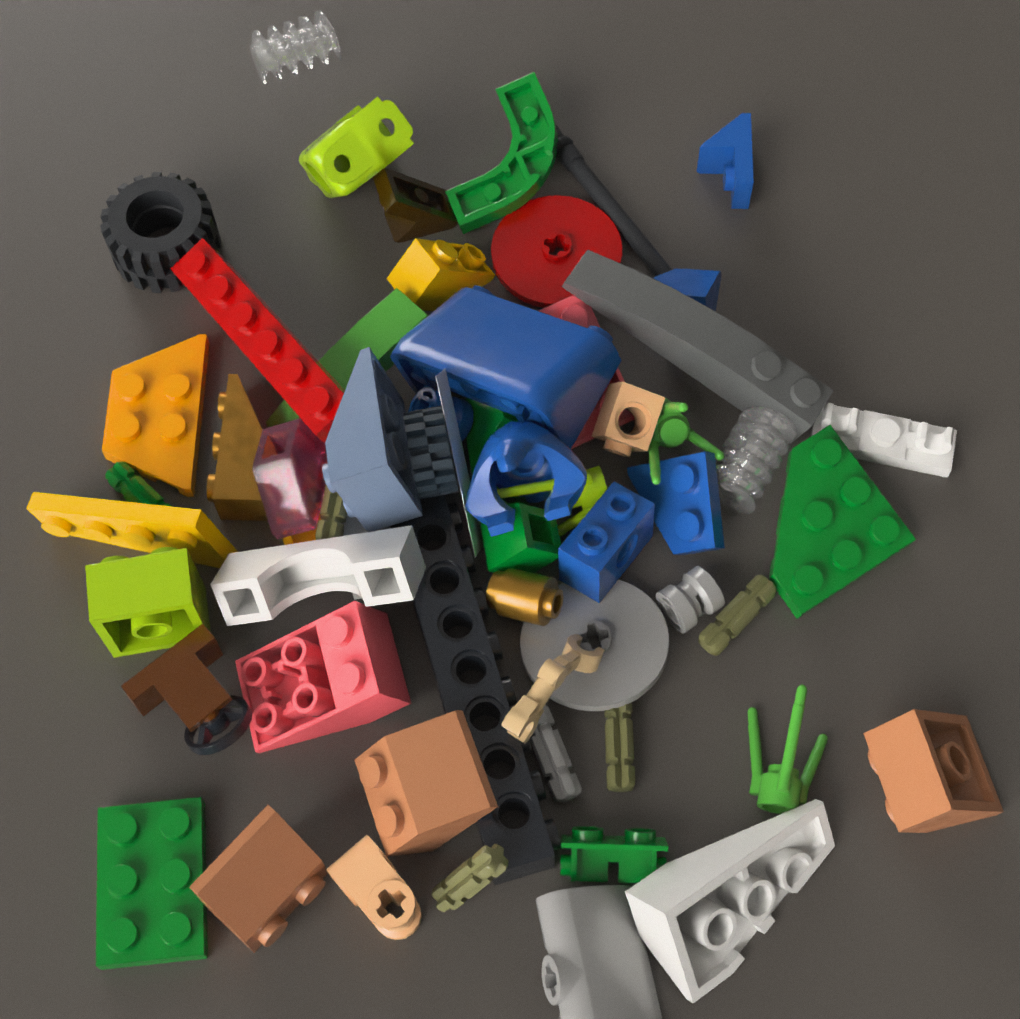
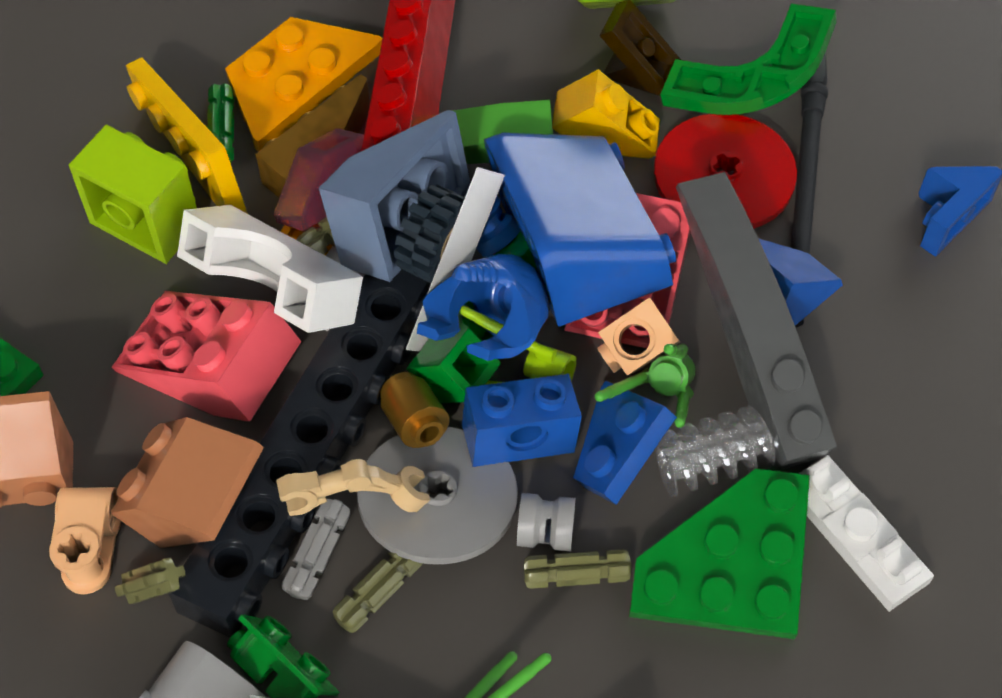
camera: 40 degrees right, 5 degrees down
(192, 692) = (101, 281): reddish brown piece -> none

